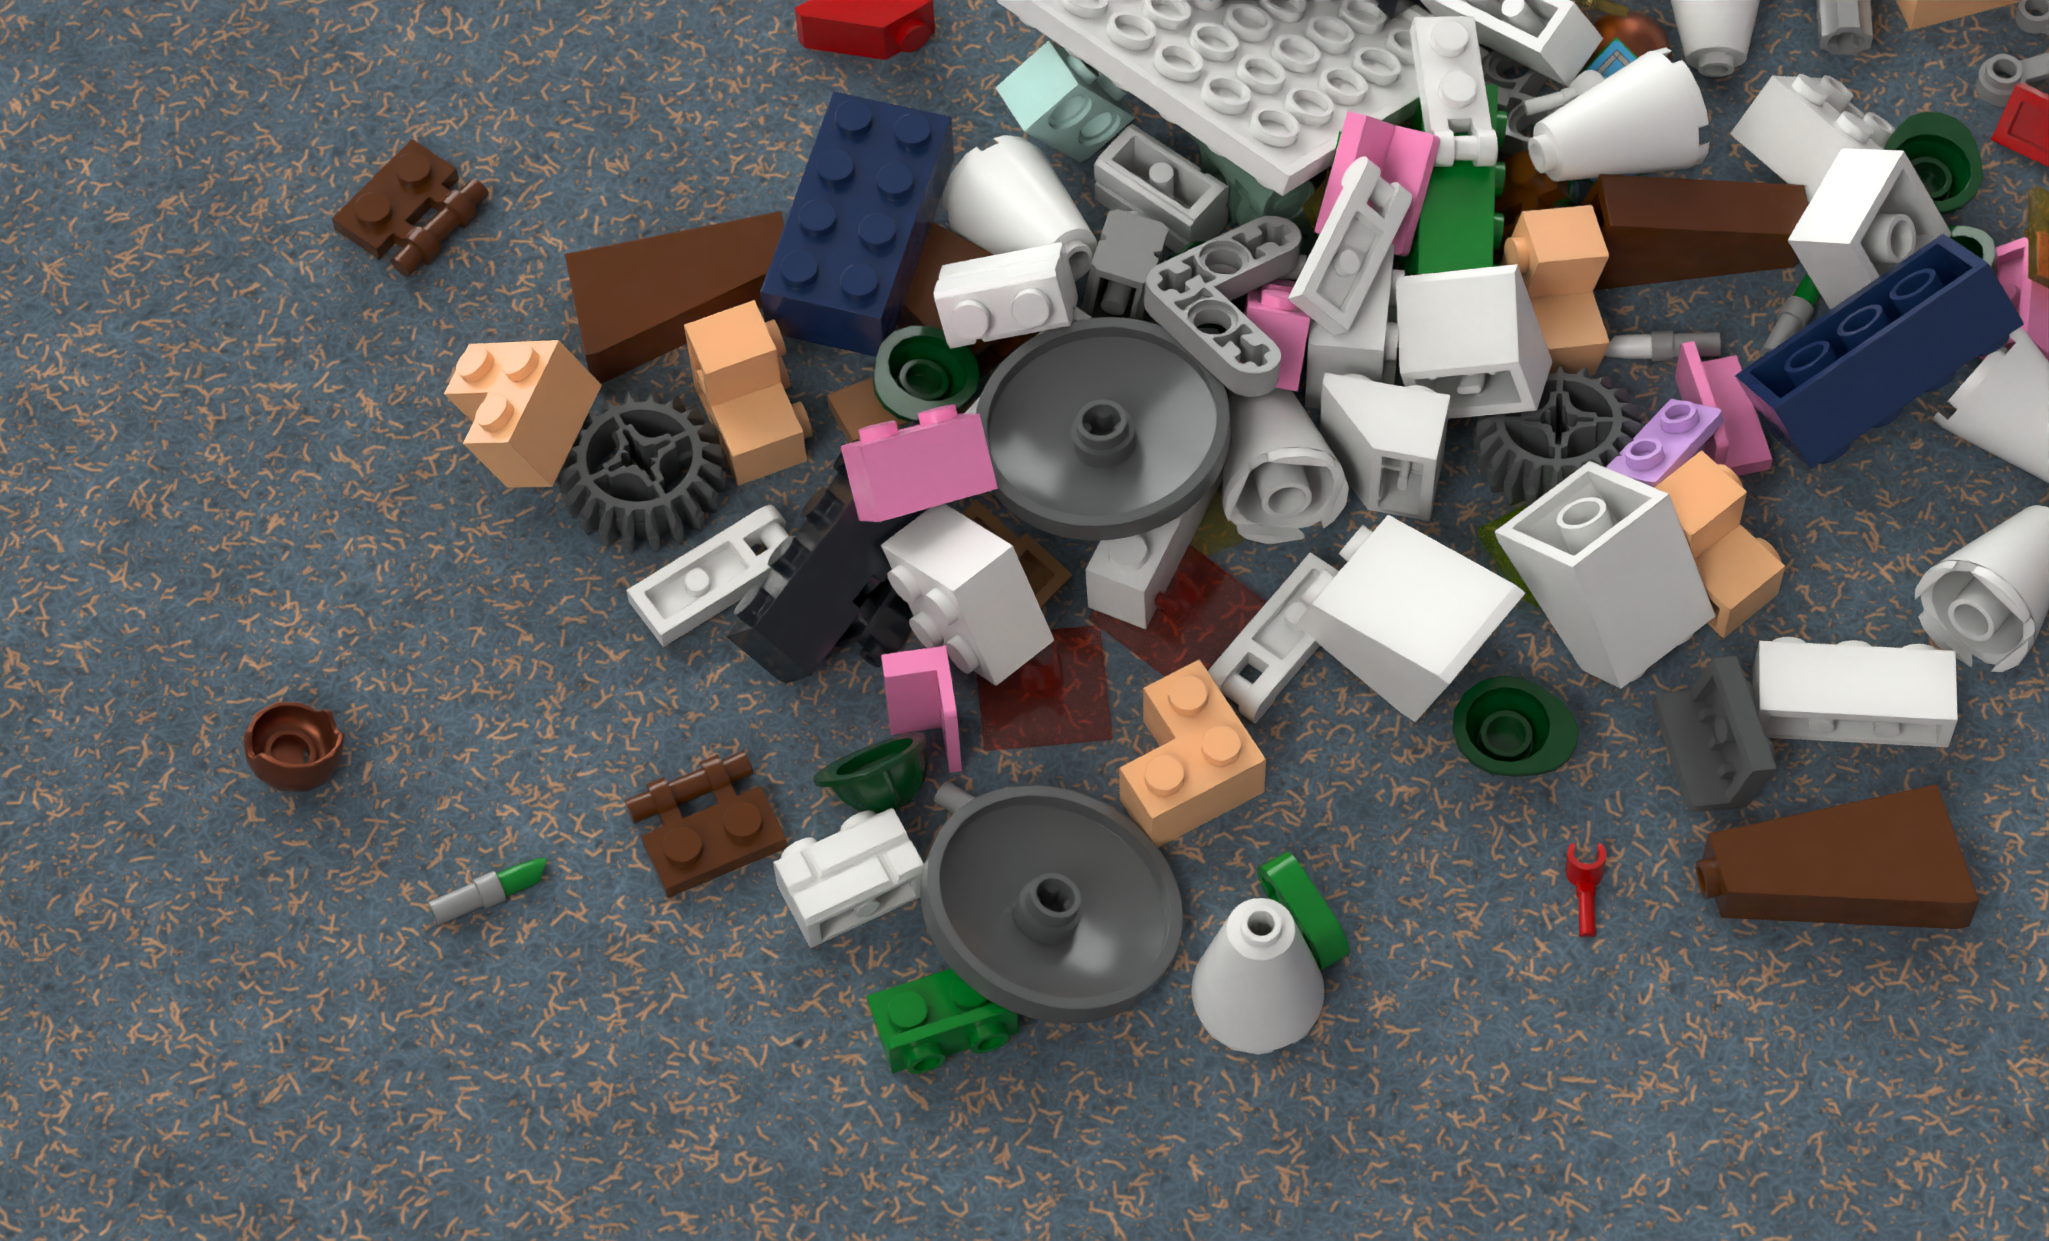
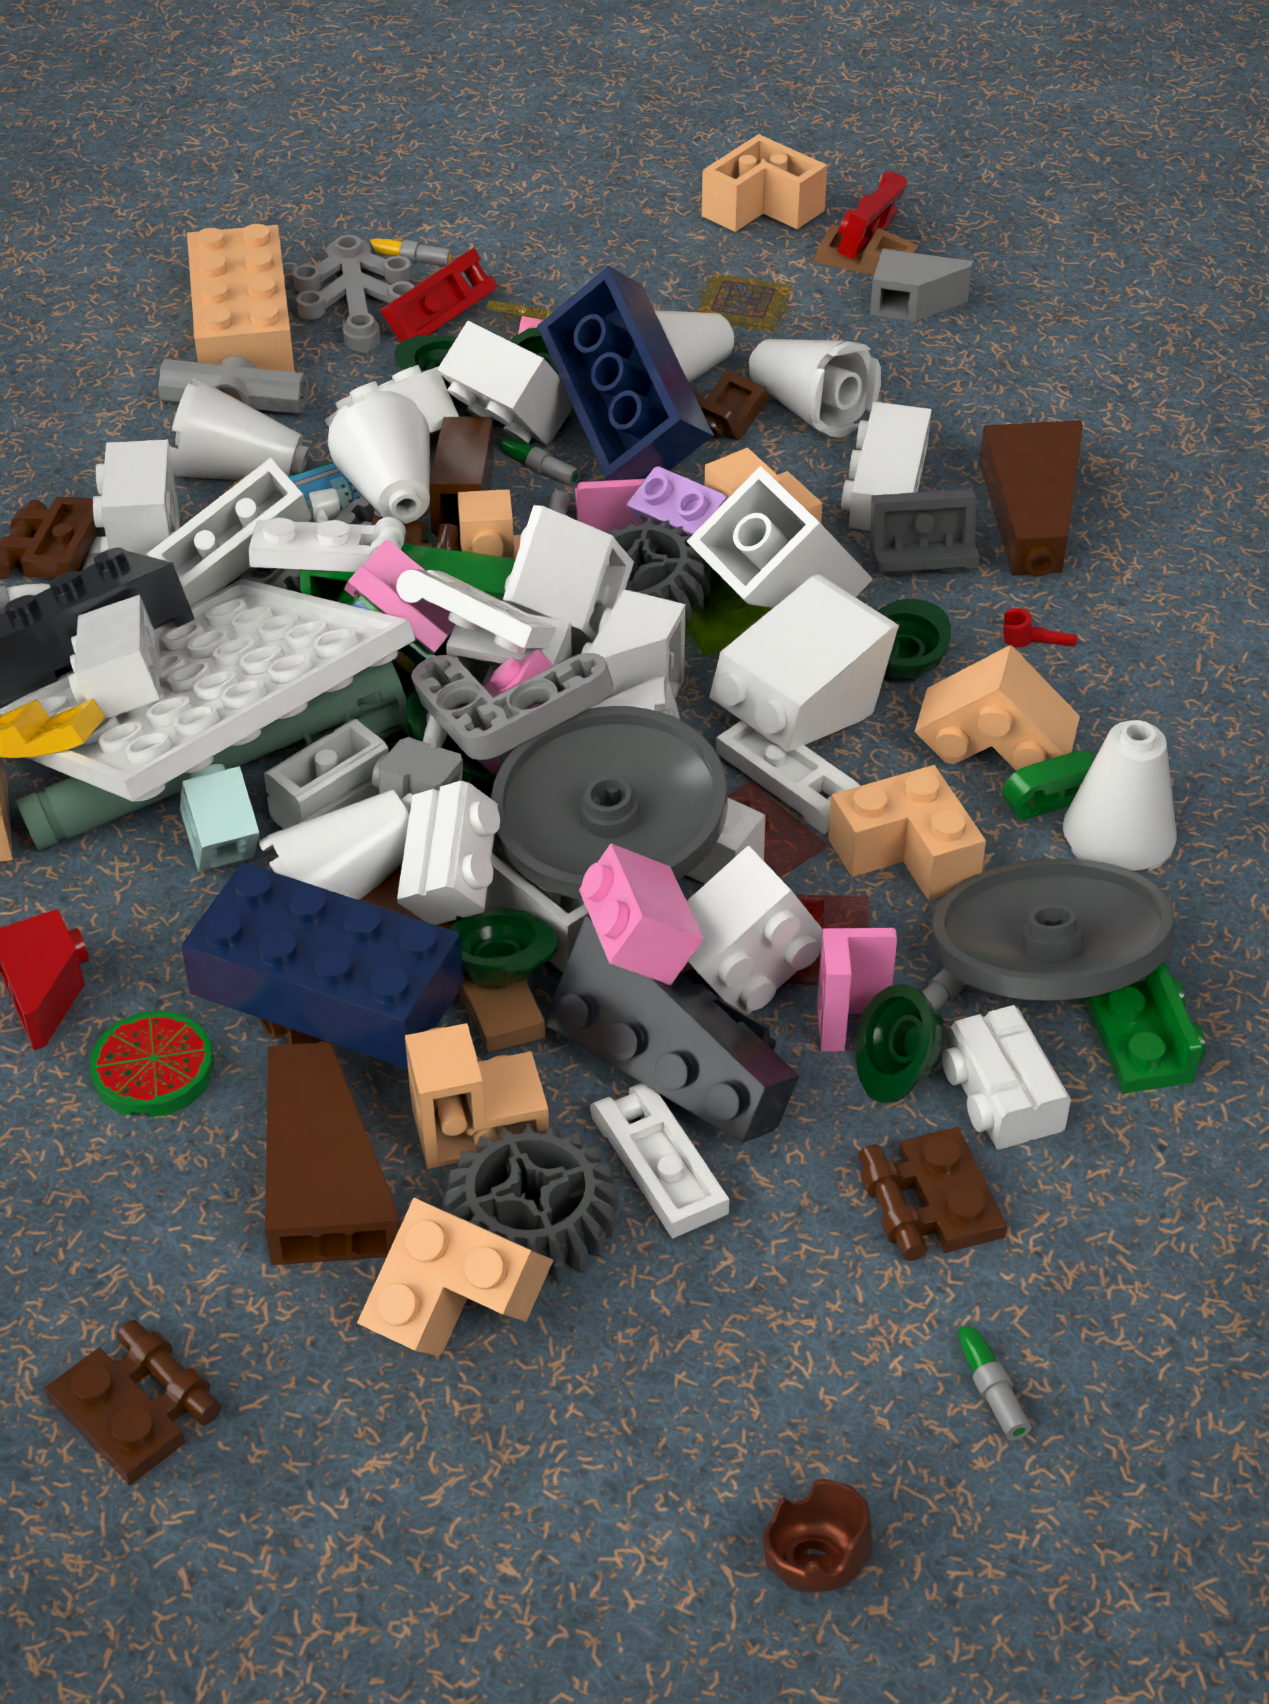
camera: 85 degrees left, 15 degrees down
(775, 132) = (151, 1063): none -> tile
(1379, 822) = (999, 706): none -> light nougat brick
(1936, 500) = (732, 405): none -> reddish brown bracket

